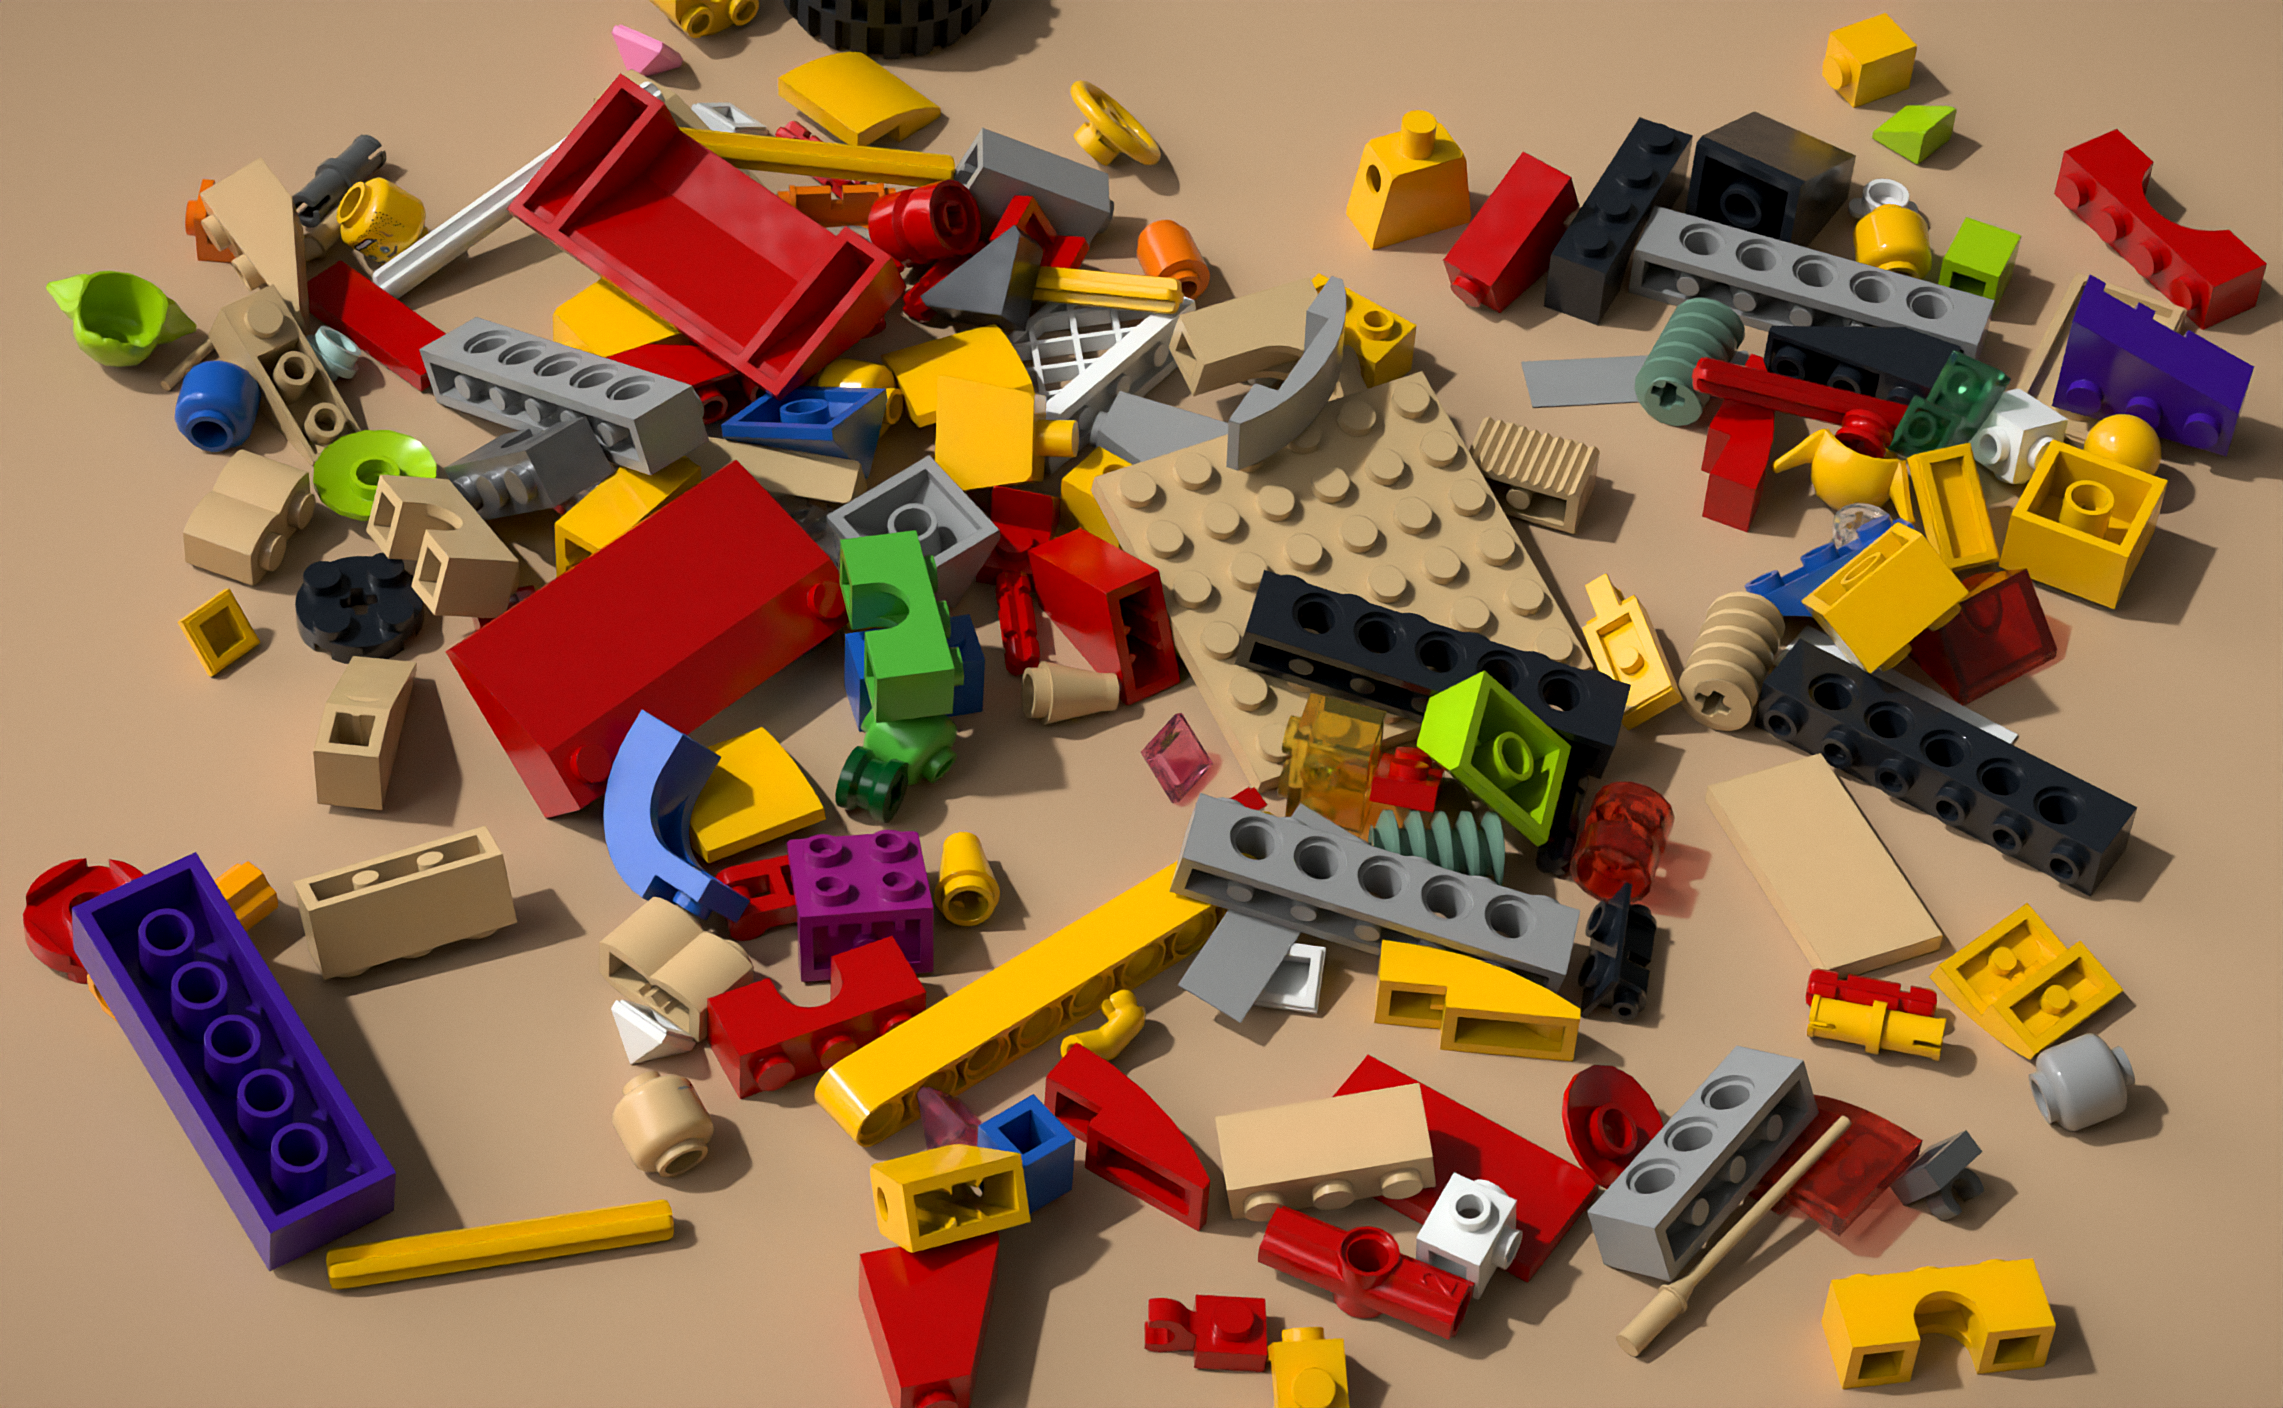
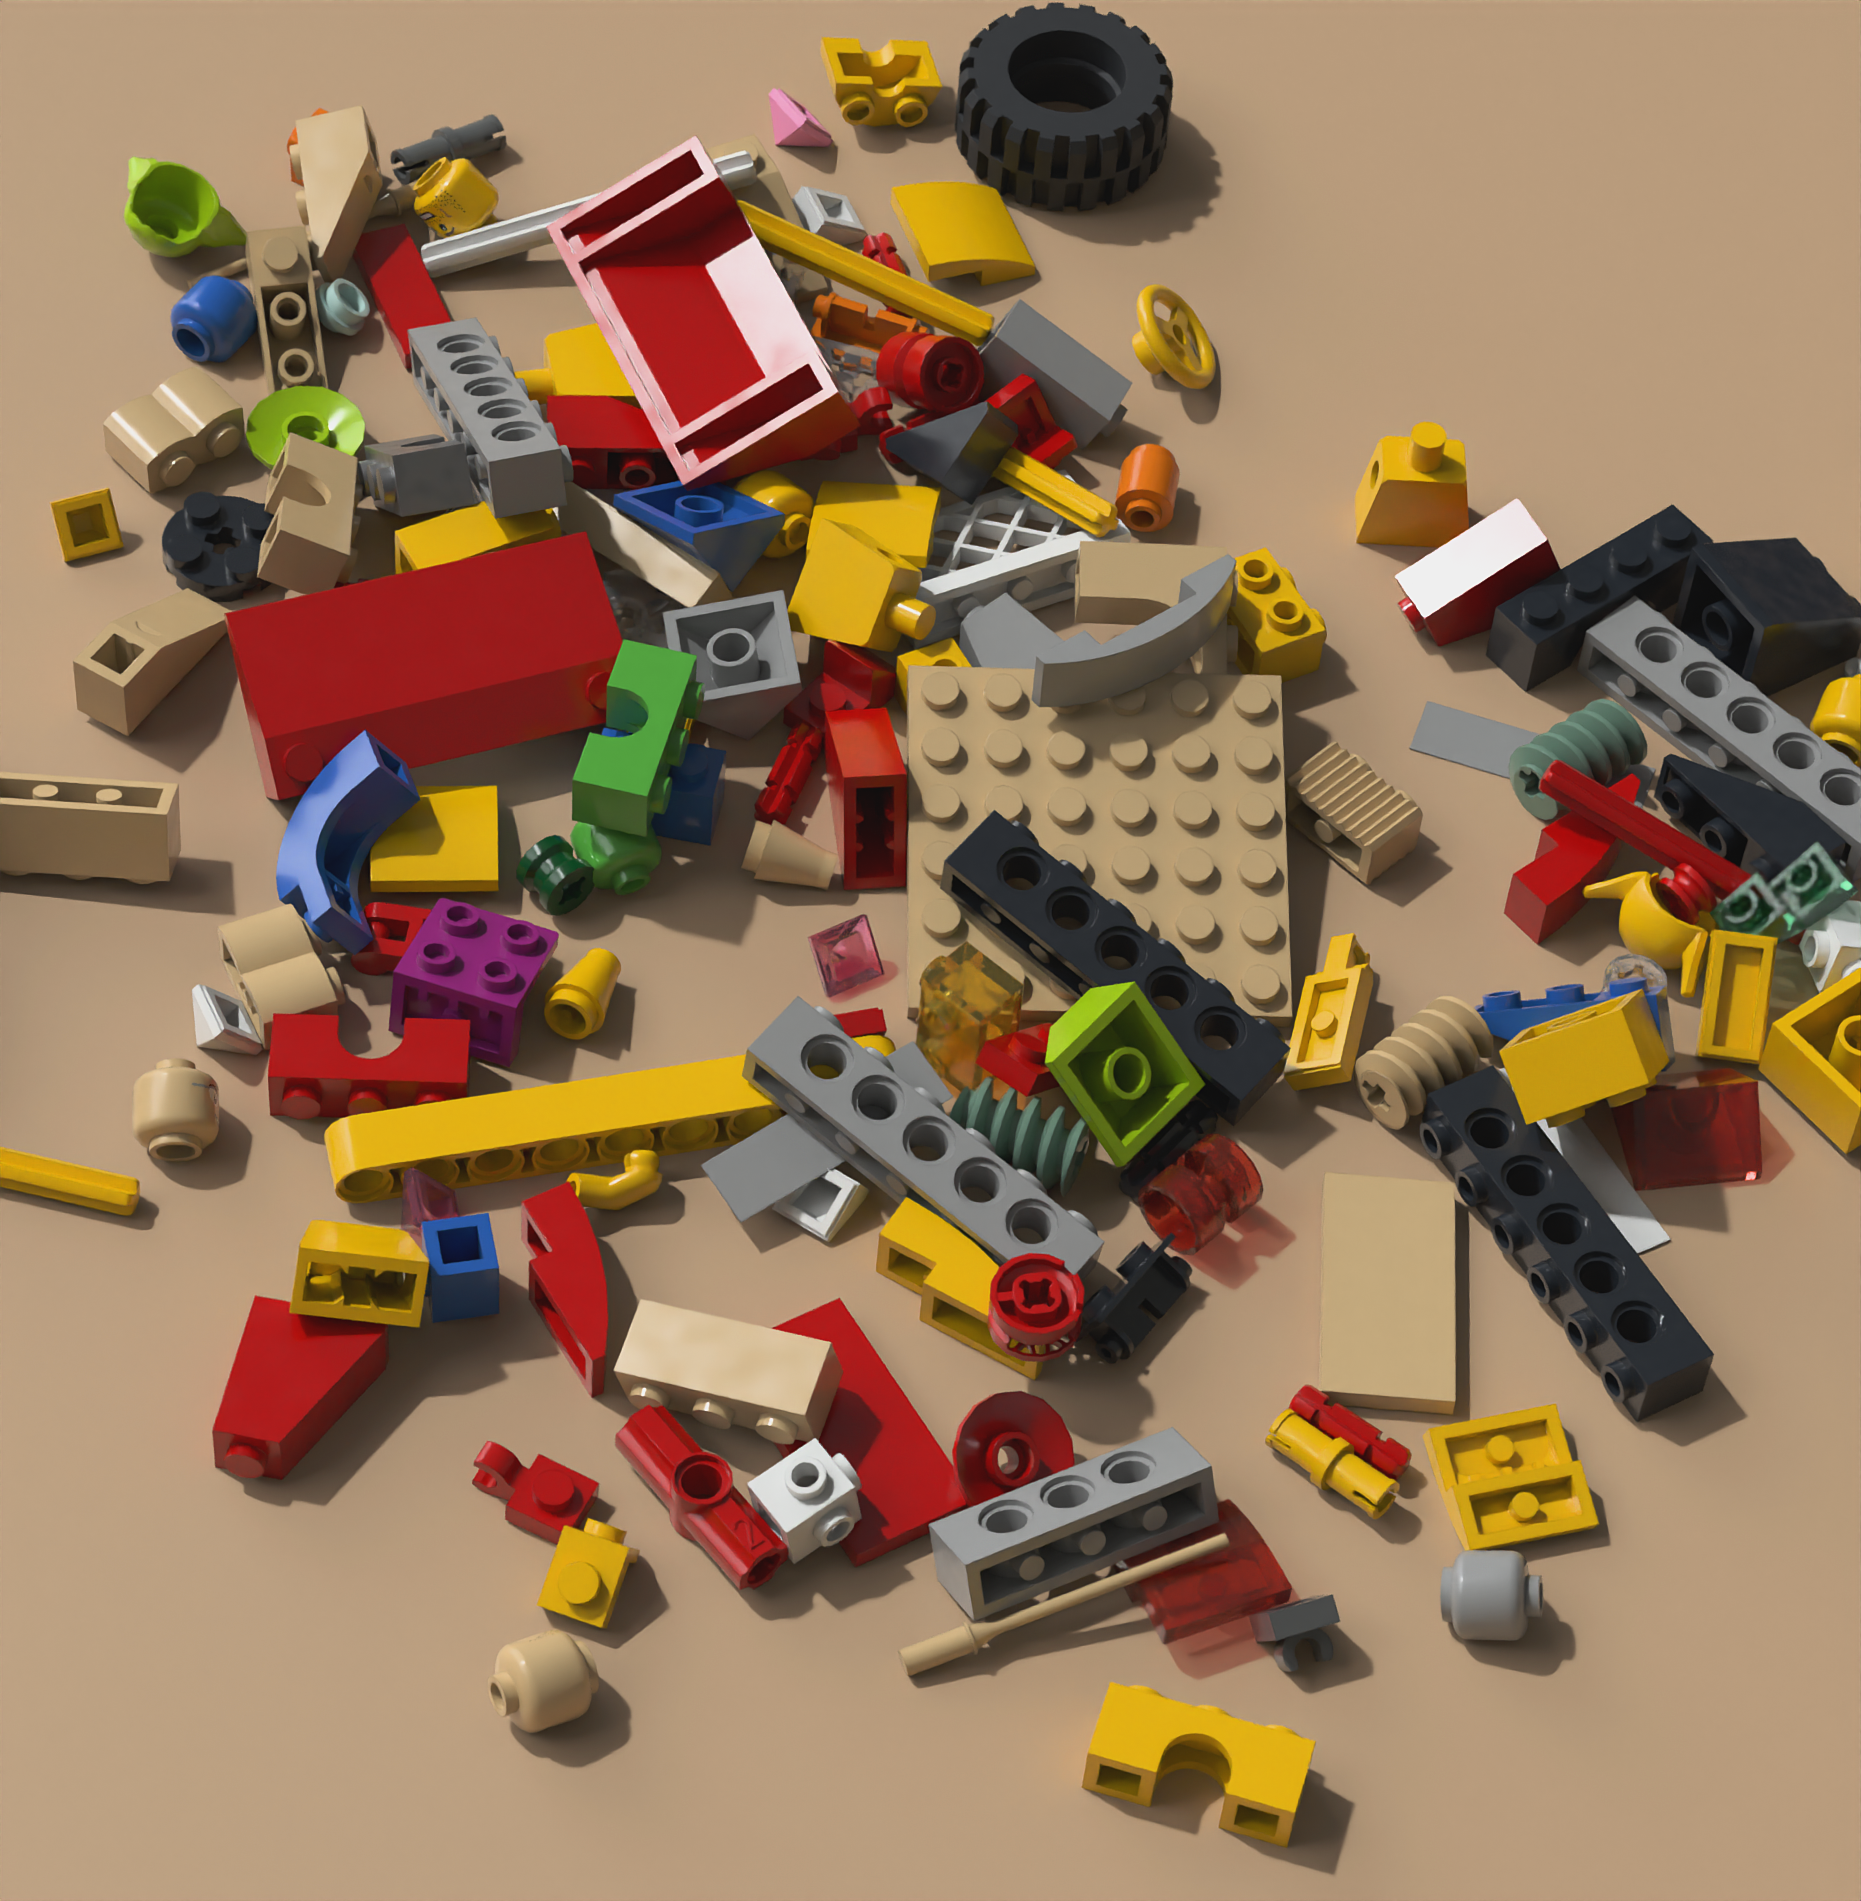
camera: 25 degrees right, 5 degrees up
(1547, 1000) = (1043, 1322): none -> red wheel

